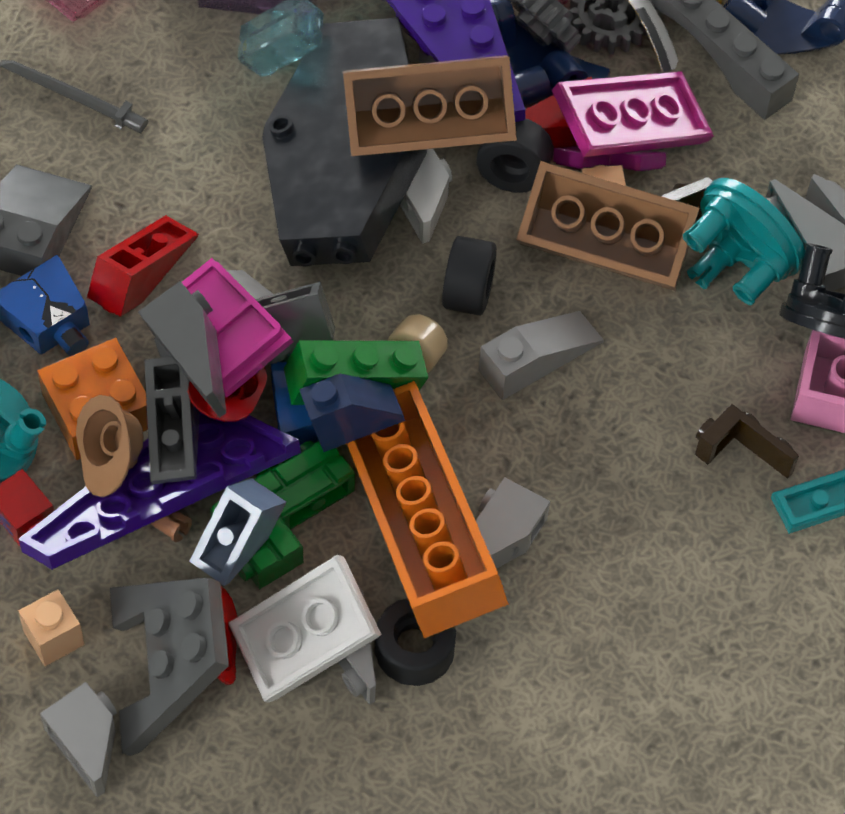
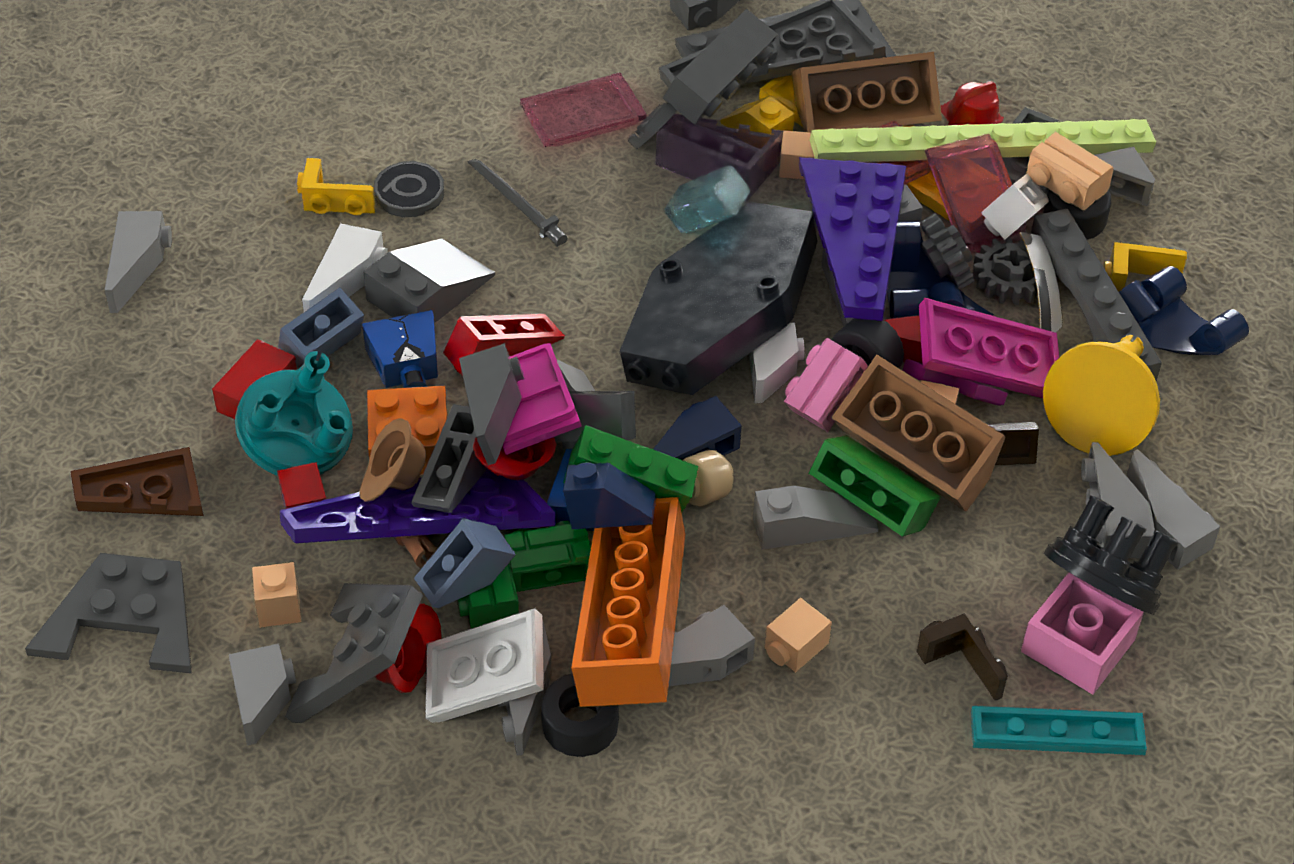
camera: 25 degrees right, 10 degrees down
(390, 296) = (702, 428): none -> dark blue slope
(430, 105) = (794, 276): medium nougat slope -> none
(469, 275) = (776, 434): black tyre -> none
(492, 202) = (824, 383): none -> bright pink brick
(582, 481) = (797, 635): none -> light nougat brick
(585, 296) = (874, 485): none -> green brick
(746, 229) = (1047, 478): teal piece -> none
(763, 129) = (1102, 396): none -> yellow piece

